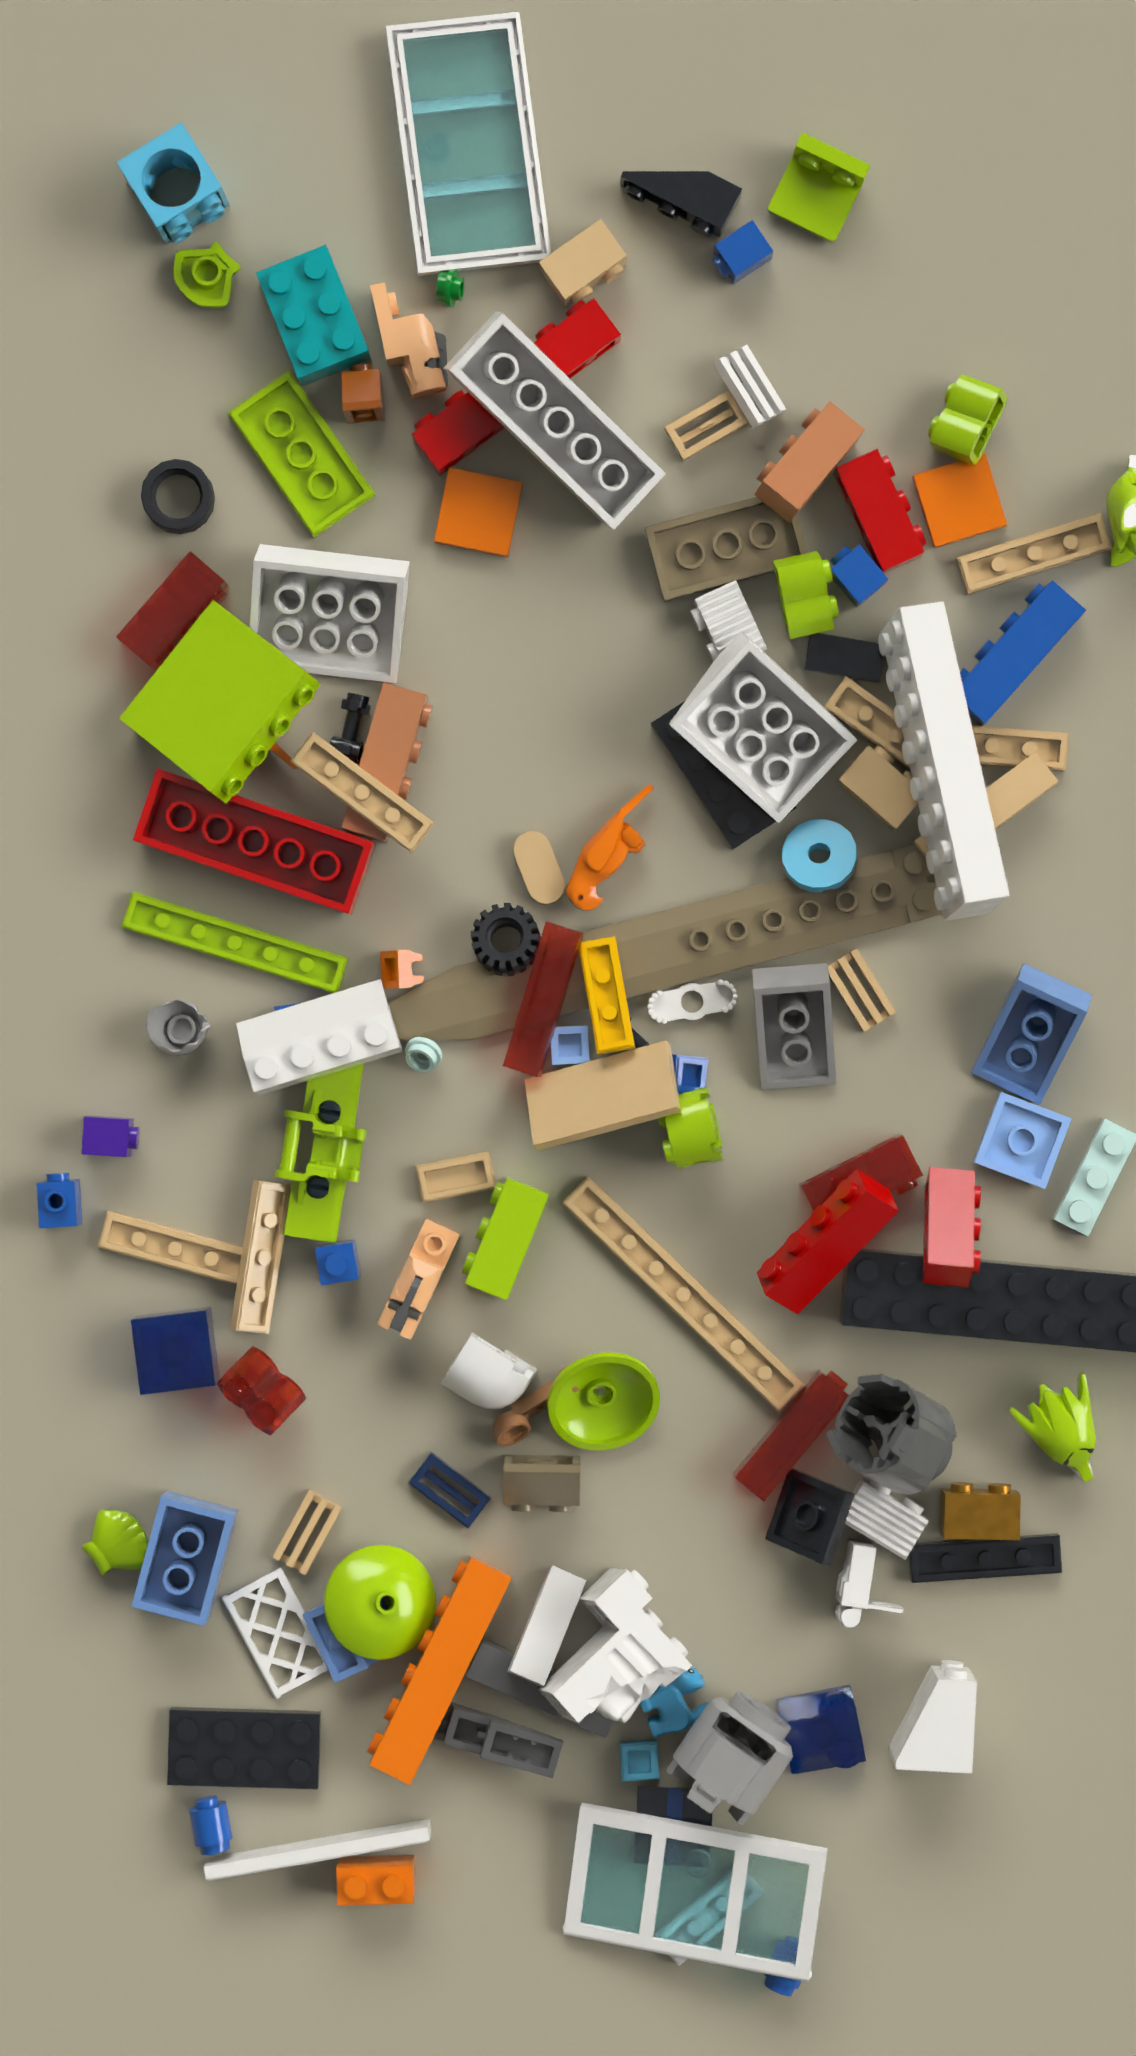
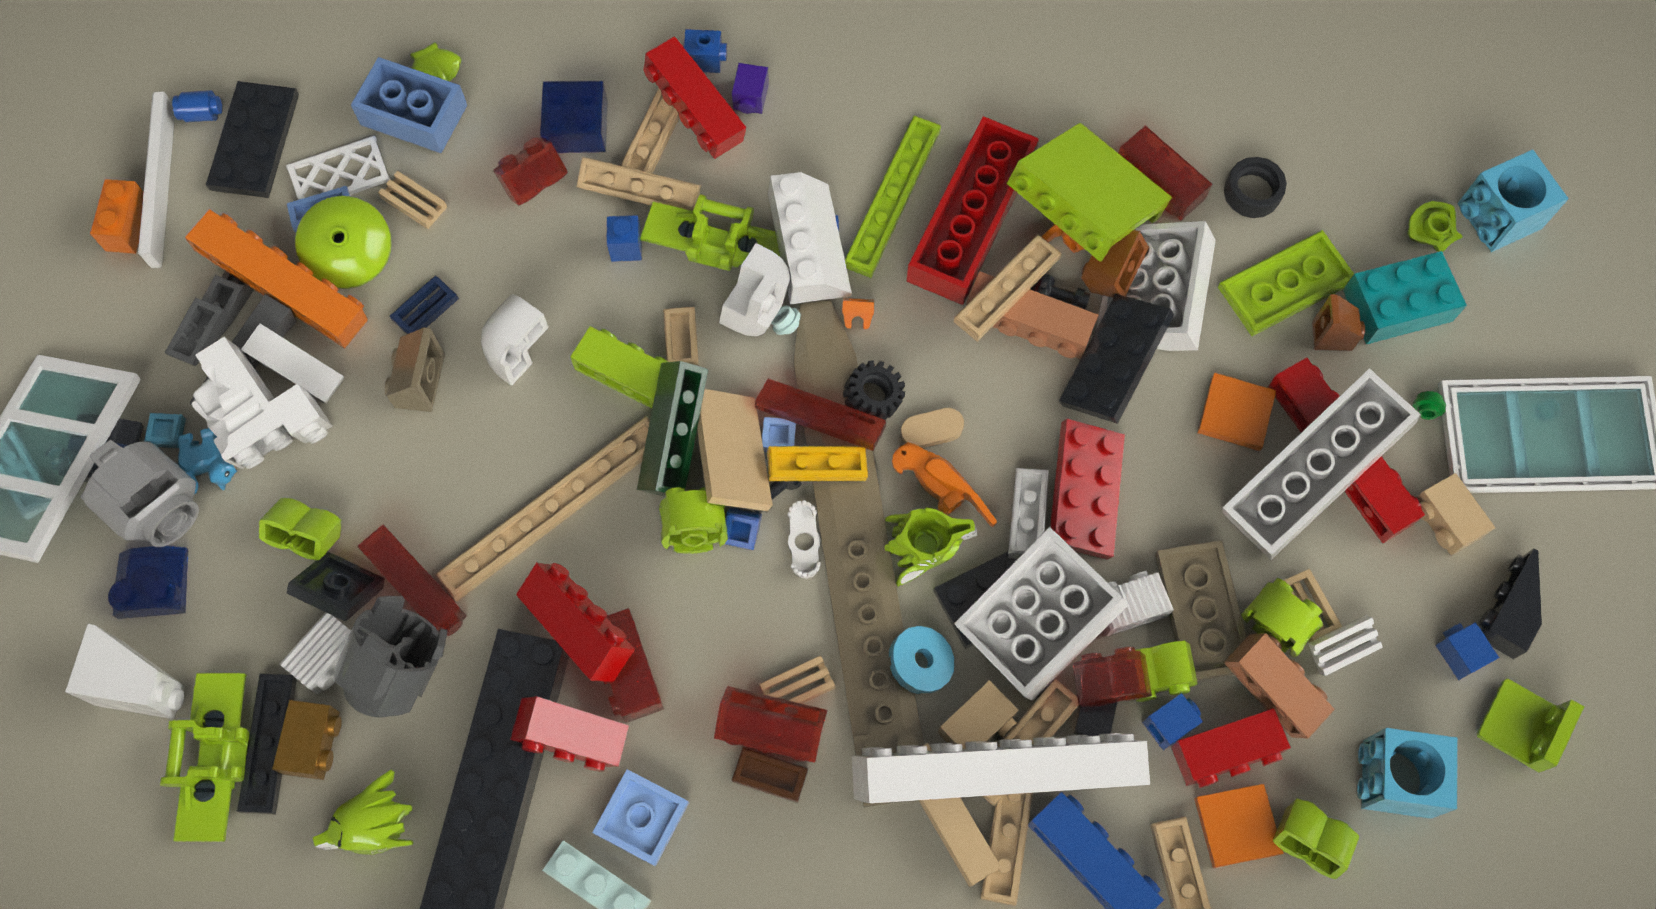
camera: 90 degrees right, 20 degrees down
(135, 1204) = (694, 97): none -> red brick
(176, 1027) = (829, 140): light grey hair -> none
(319, 658) = (1118, 267): none -> dark orange slope
(400, 1090) = (757, 293): none -> white brick
(413, 344) = (1387, 361): light nougat plate -> none
(418, 1278) = (600, 297): light nougat plate -> none
(434, 657) = (1116, 358): none -> black plate
(515, 1424) = (466, 358): medium nougat piece -> none
(587, 1166) = (672, 427): none -> dark green brick
(597, 683) = (1087, 488): none -> plate
(606, 1415) = (471, 425): lime dish -> none
(634, 748) = (1028, 509): none -> white tile
(682, 863) = (926, 540): none -> lime piece
(734, 459) = (1284, 616): none -> lime brick
(746, 1572) = (299, 528): none -> lime brick
(794, 1026) = (772, 622): light grey slope -> none
(824, 645) = (1112, 677): none -> clear red brick
(855, 1584) = (265, 618): white piece -> none
(910, 1012) = (770, 724): none -> clear red brick
(912, 294) = (1437, 768): none -> medium azure brick
(959, 1008) = (770, 775): none -> reddish brown tile
(1008, 1601) = (221, 759): none -> lime piece
(1032, 1033) = (739, 837): medium blue slope -> none

